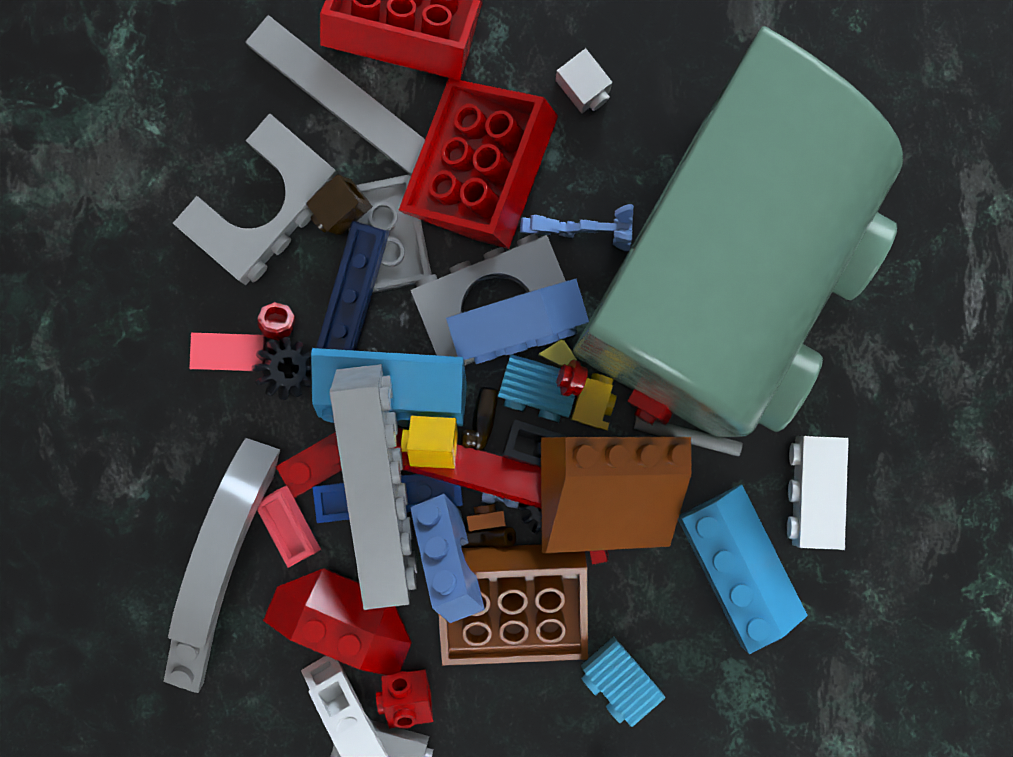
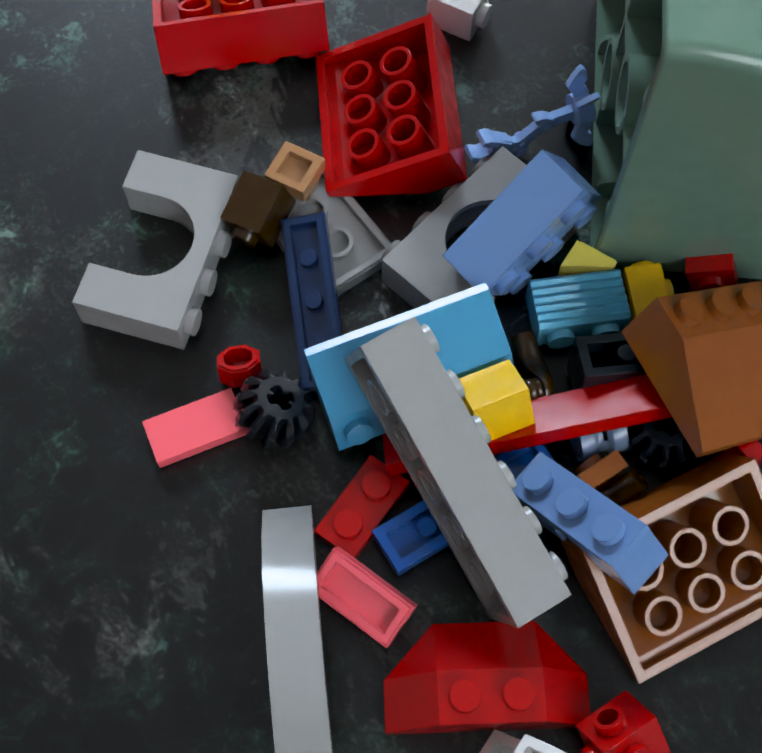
camera: 25 degrees left, 20 degrees down
(337, 93) = (197, 116): light grey tile -> none
(378, 187) = (296, 170): none -> medium nougat tile
(572, 378) = (615, 266): red plate -> none

